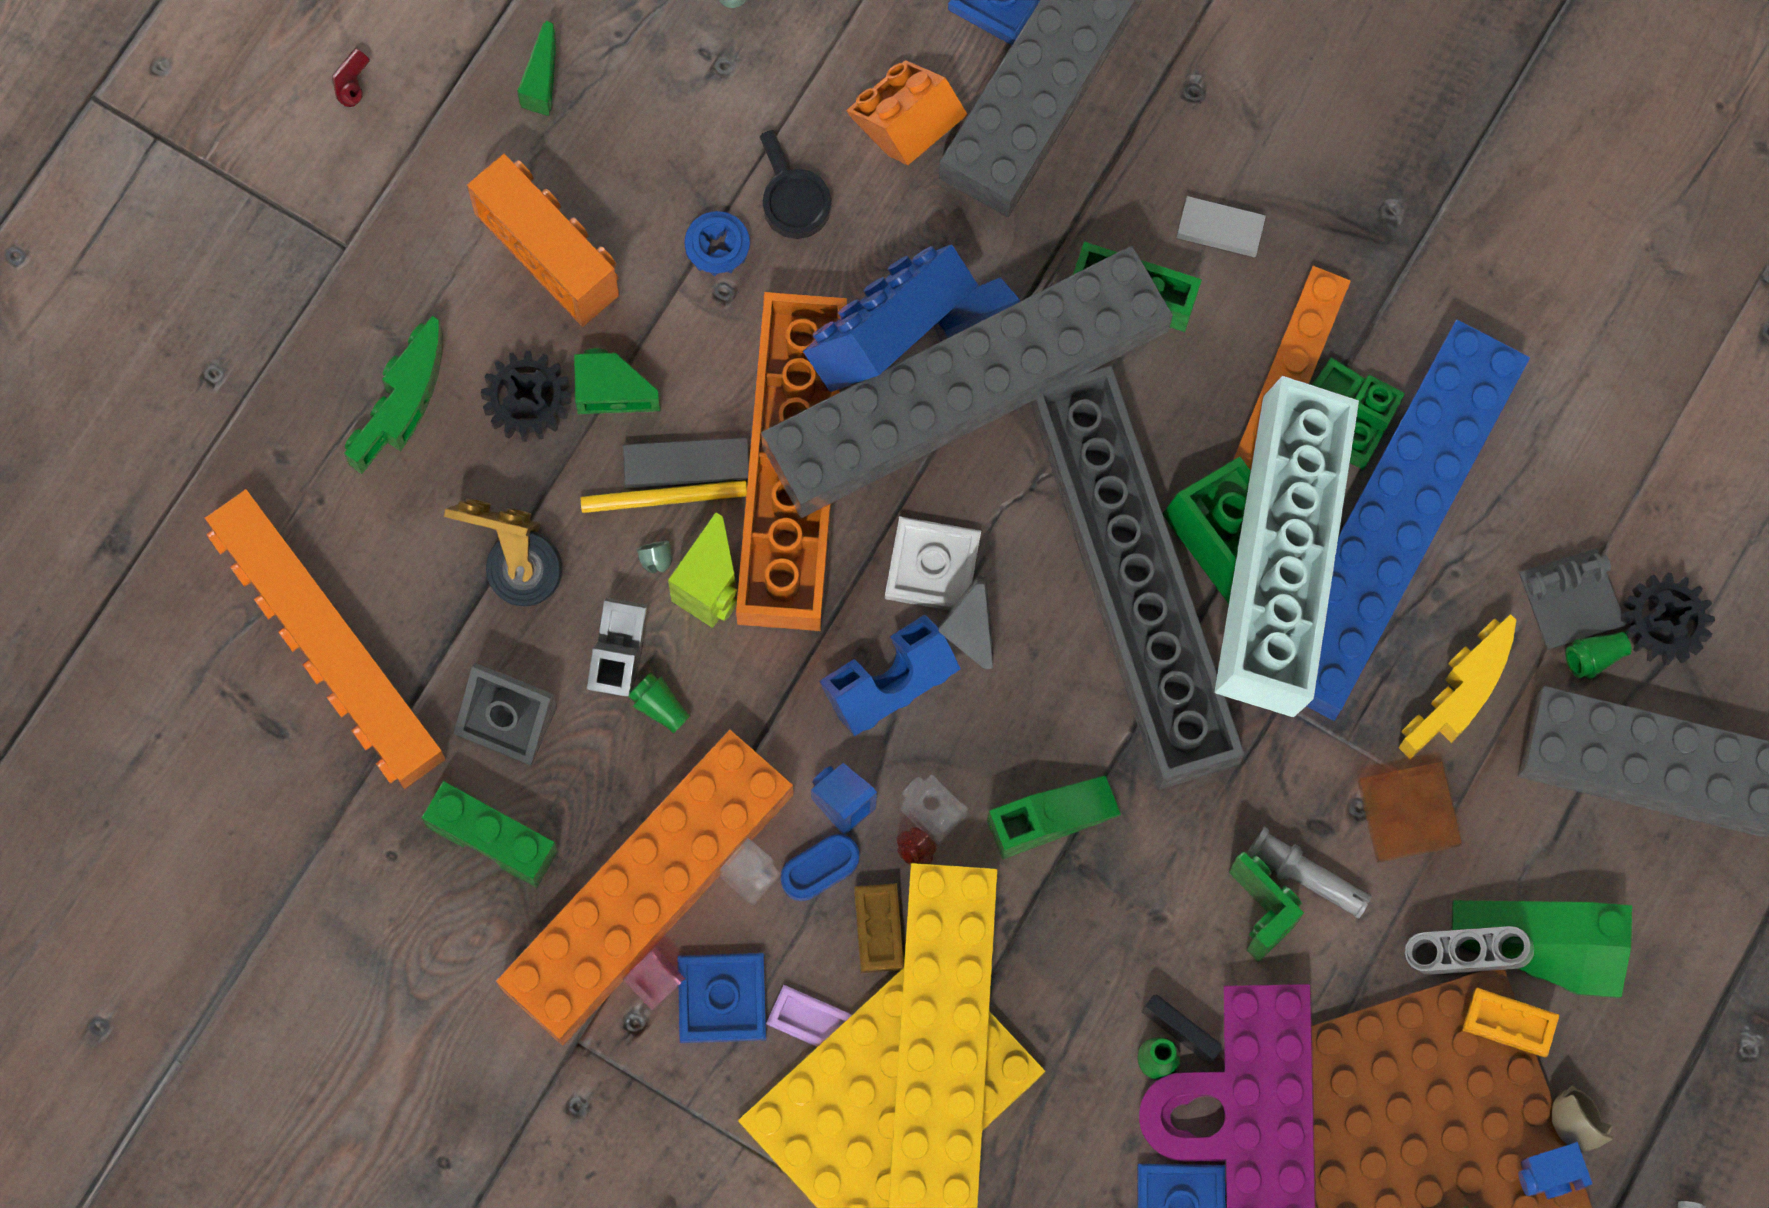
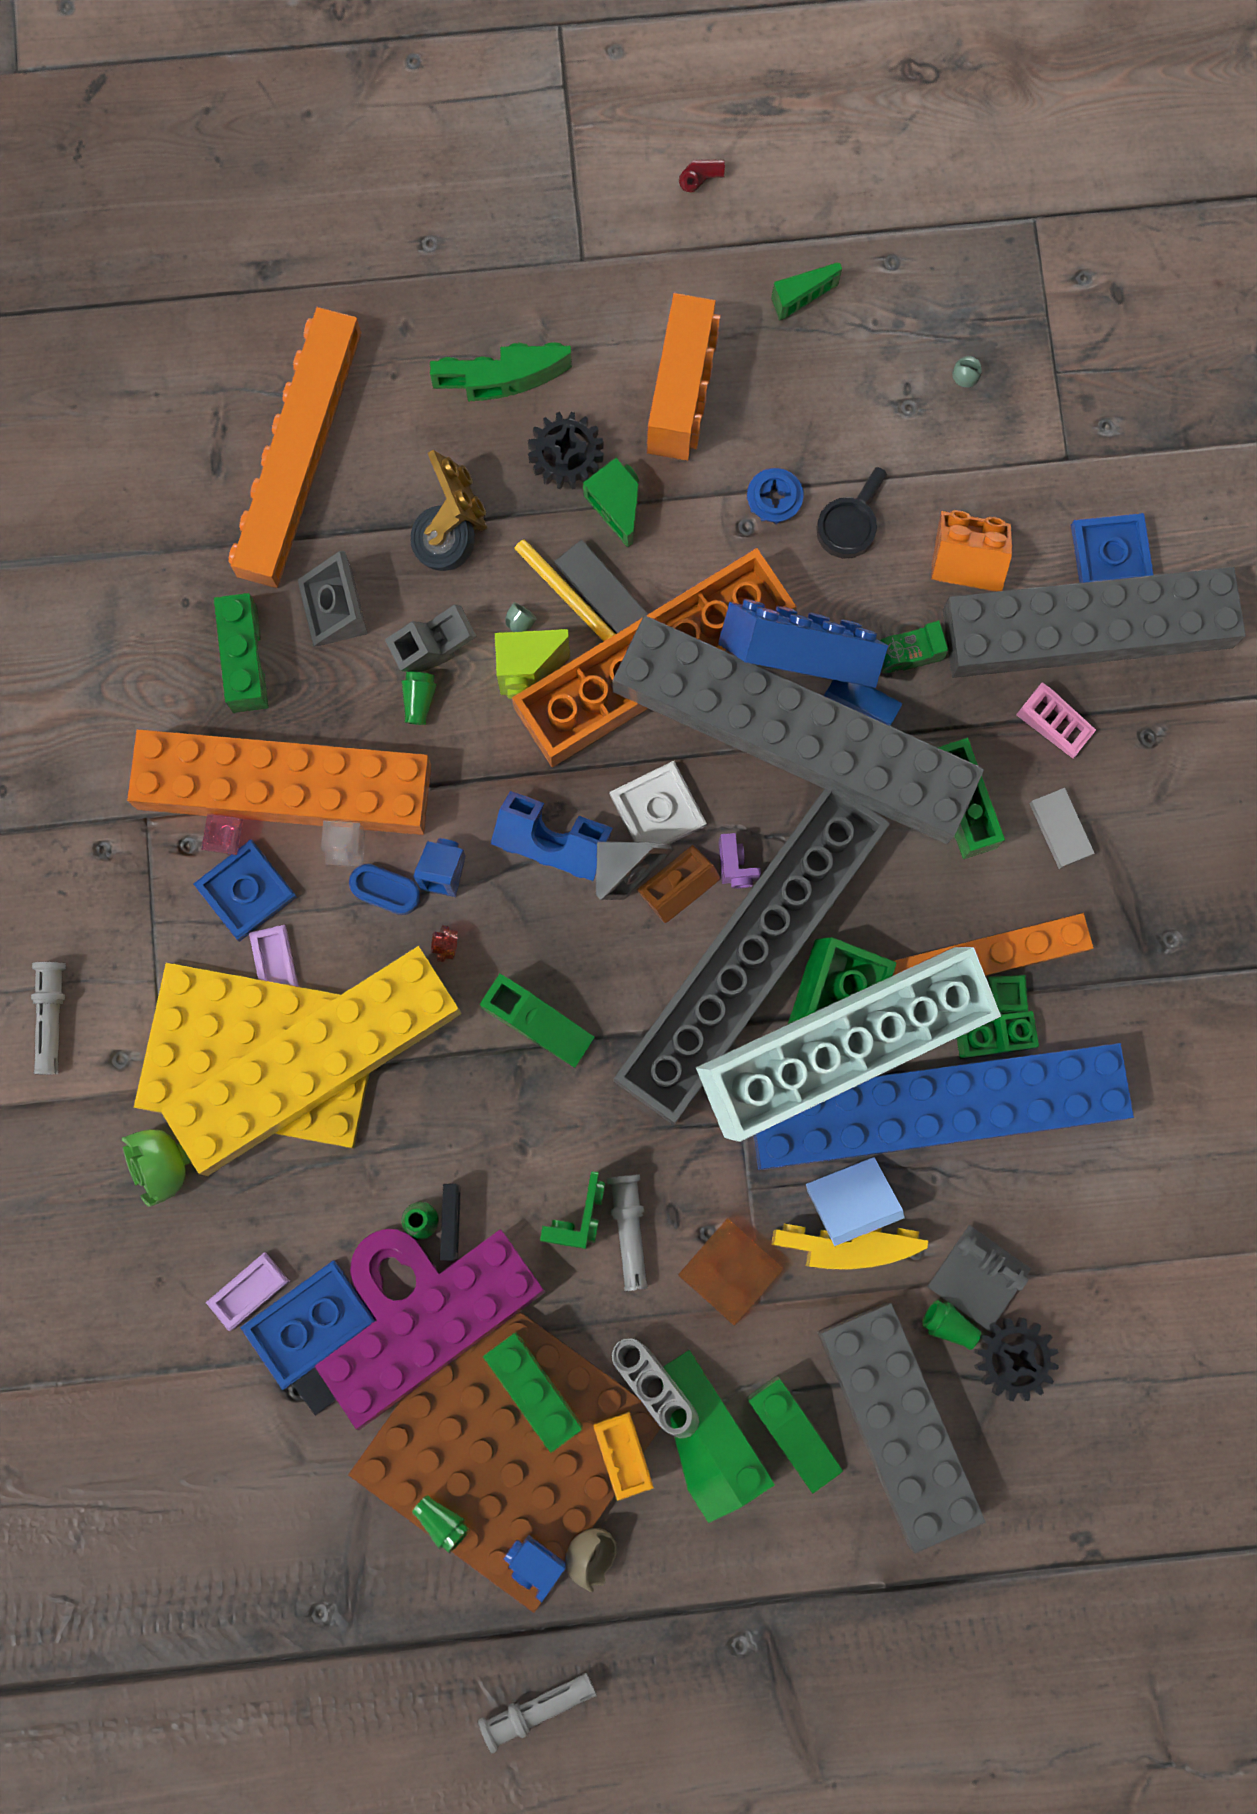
camera: 55 degrees right, 5 degrees up
(878, 928) = (369, 957): pearl gold plate -> none
(936, 822) = (484, 947): clear brick -> none
(961, 222) = (915, 648): none -> green leg
(1017, 597) = (679, 884): none -> dark orange slope
(1031, 532) = (730, 857): none -> medium lavender bracket
(1103, 145) = (1064, 710): none -> bright pink slope
(1396, 1059) = (533, 1392): none -> green brick
(1427, 653) = (854, 1201): none -> light blue tile
(1594, 860) = (794, 1434): none -> green slope

